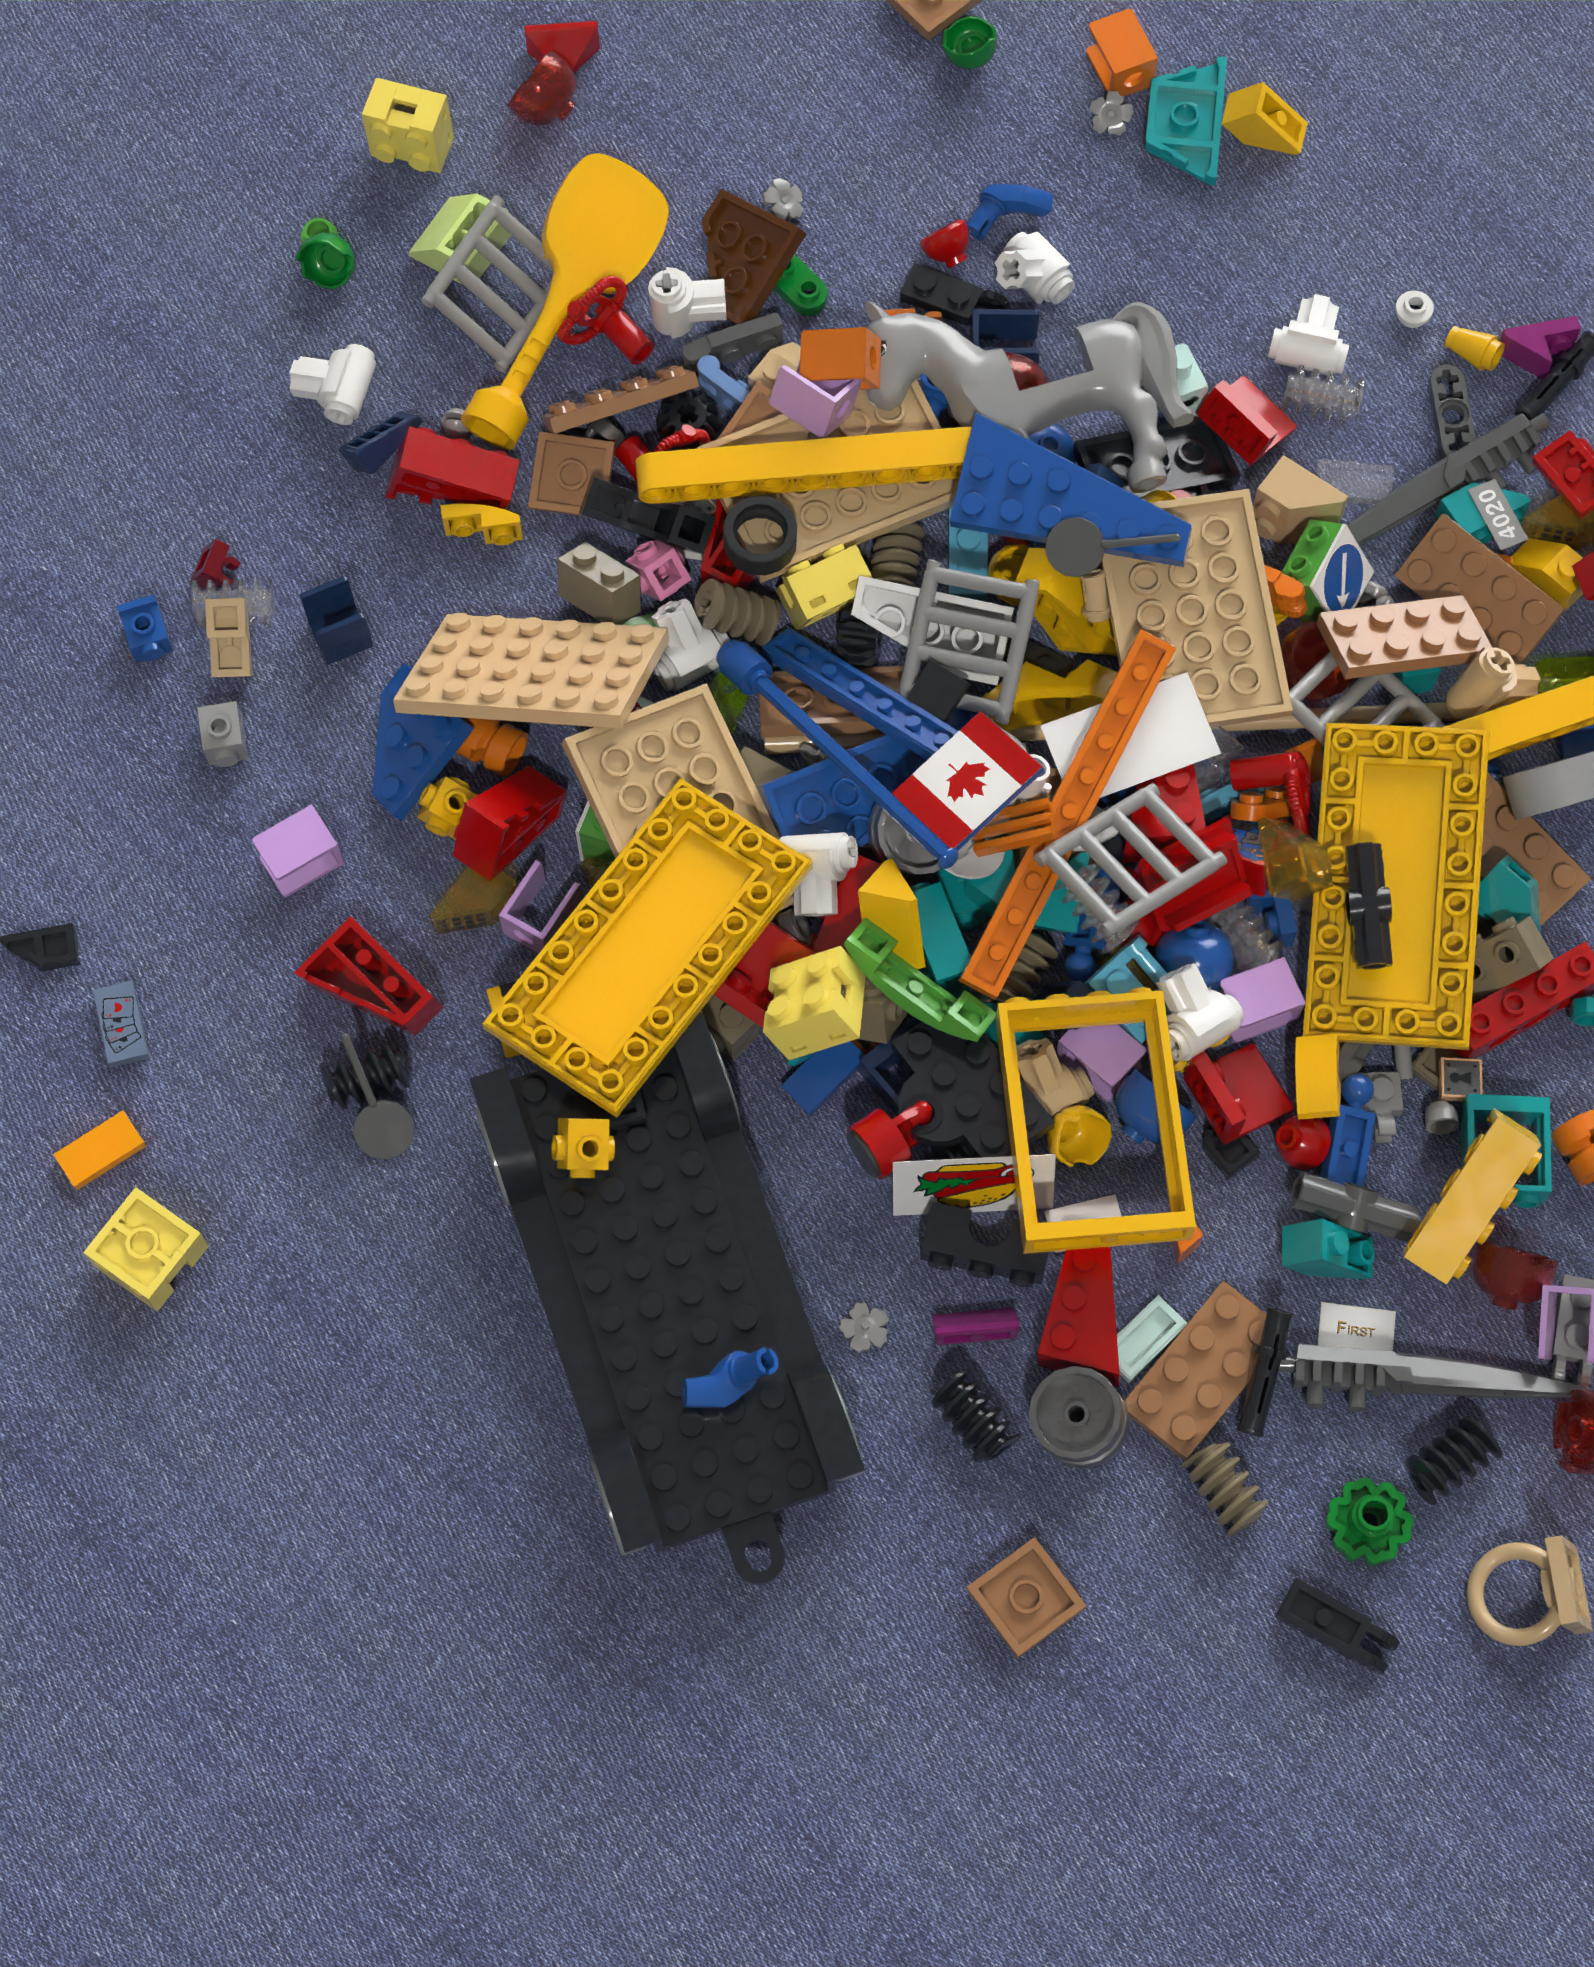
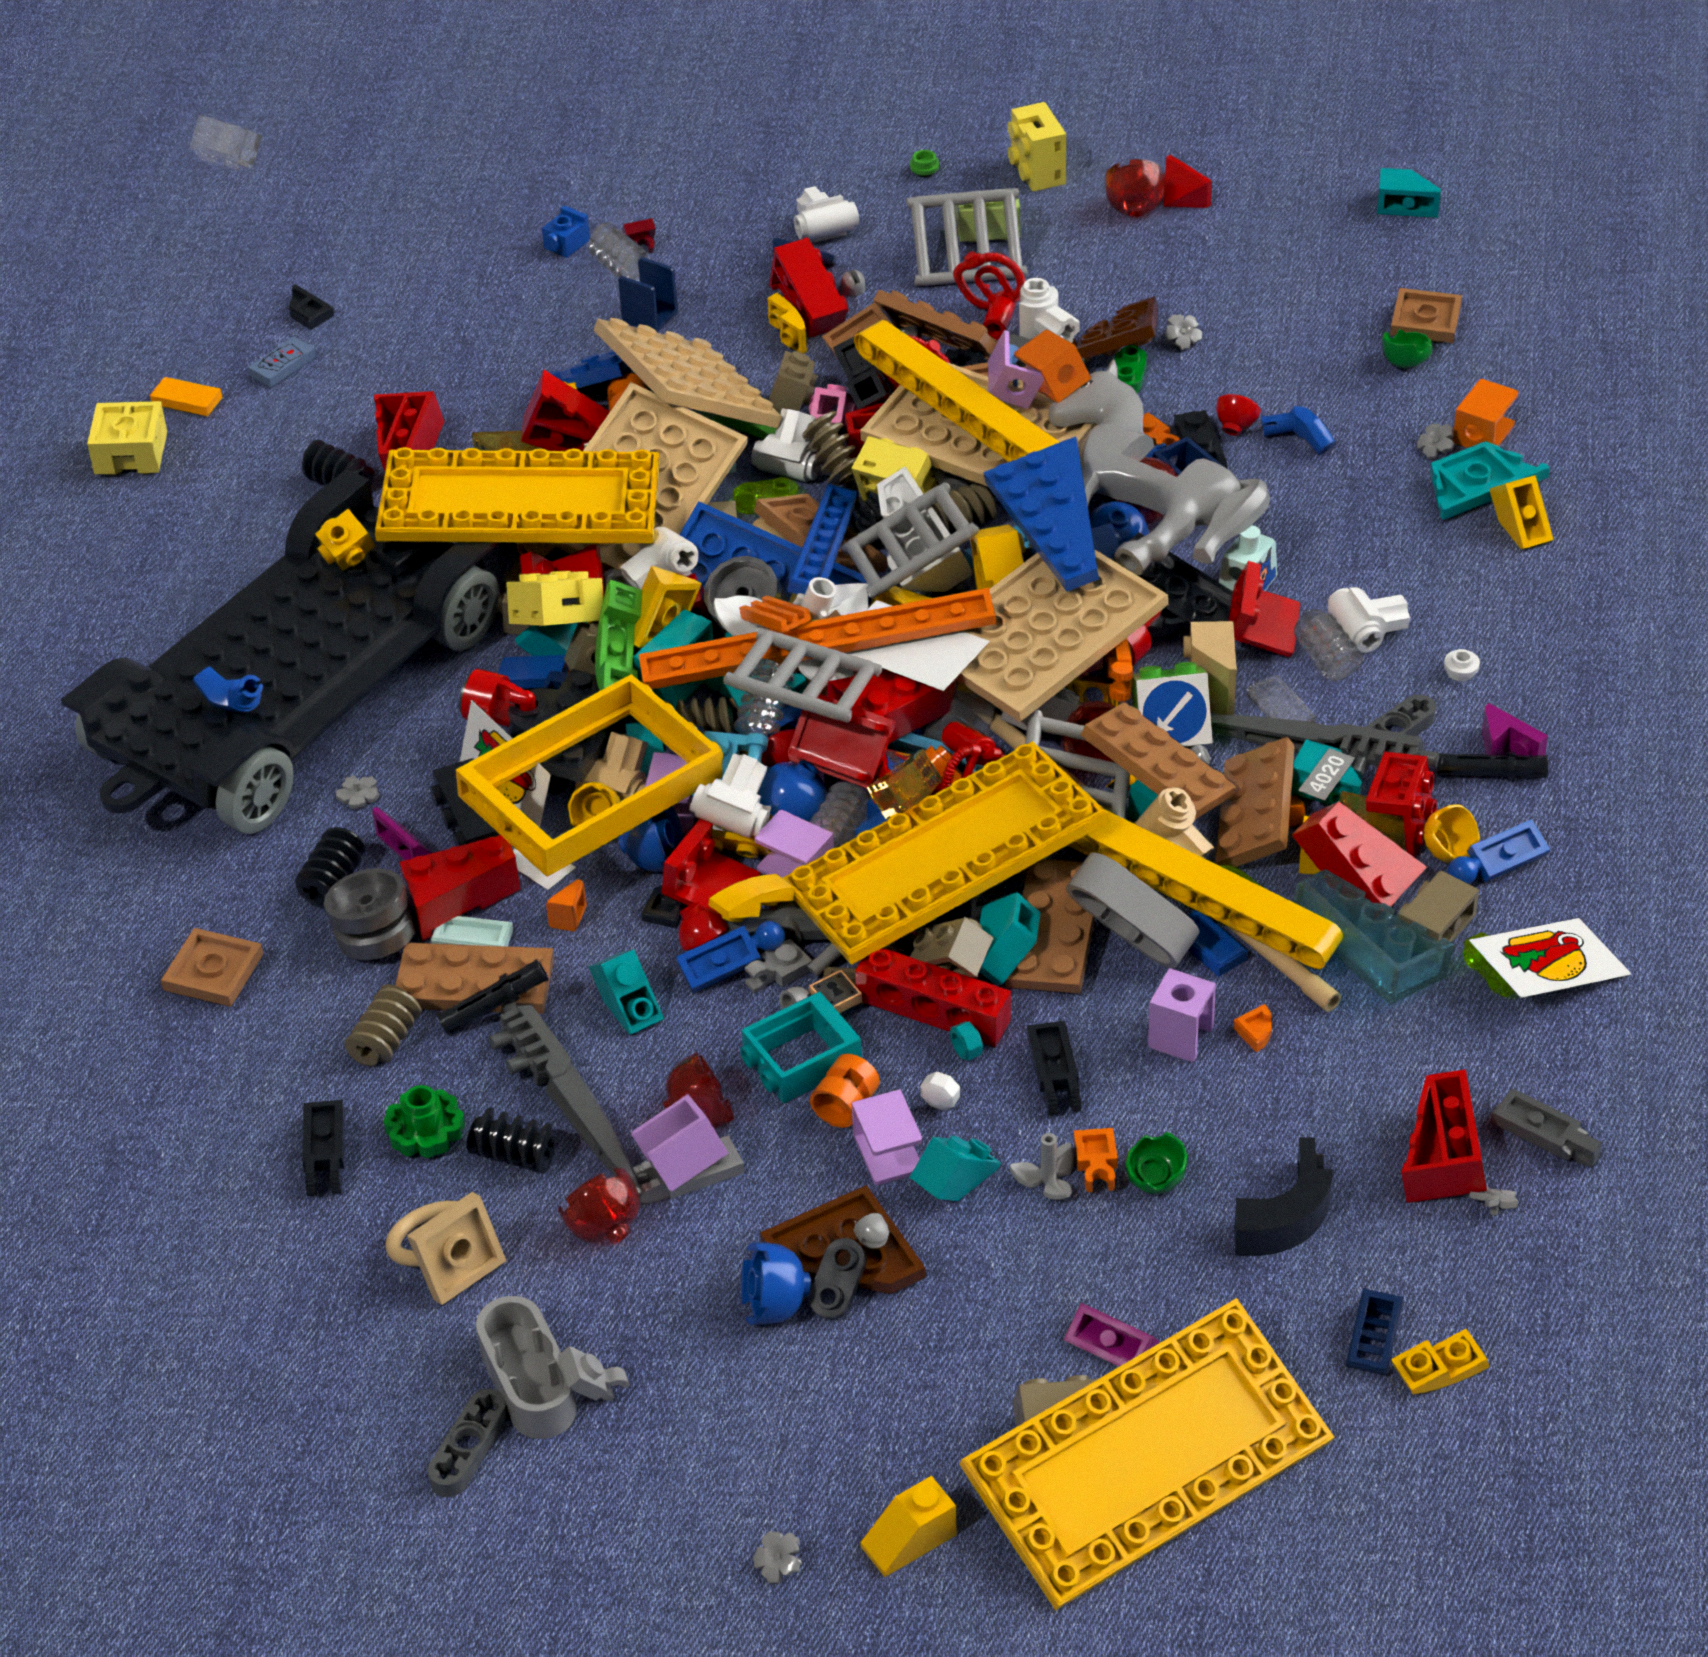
camera: 55 degrees right, 25 degrees down
(222, 734) = (523, 296): light grey brick -> none
(229, 637) = (597, 253): tan slope -> none
(298, 851) = (470, 363): lavender piece -> none
(326, 260) = (907, 167): green hair -> none
(383, 1126) = (307, 486): dark grey piece -> none
(596, 227) = (1056, 243): yellow piece -> none
(762, 508) = (884, 390): black tyre -> none
(938, 691) = (859, 549): black piece -> none
(944, 798) = (775, 565): flag -> none
(1035, 267) = (1261, 454): white piece -> none
(1078, 546) = (1025, 527): dark grey piece -> none
(1095, 596) = (1007, 563): tan pin -> none
(1354, 1207) = (671, 981): dark grey piece -> none
(1356, 1327) = (584, 1047): white sticker -> none
(1368, 906) = (903, 834): black piece -> none
(1473, 1198) = (731, 1016): yellow wedge -> none
(1475, 347) = (1466, 710): yellow cone -> none

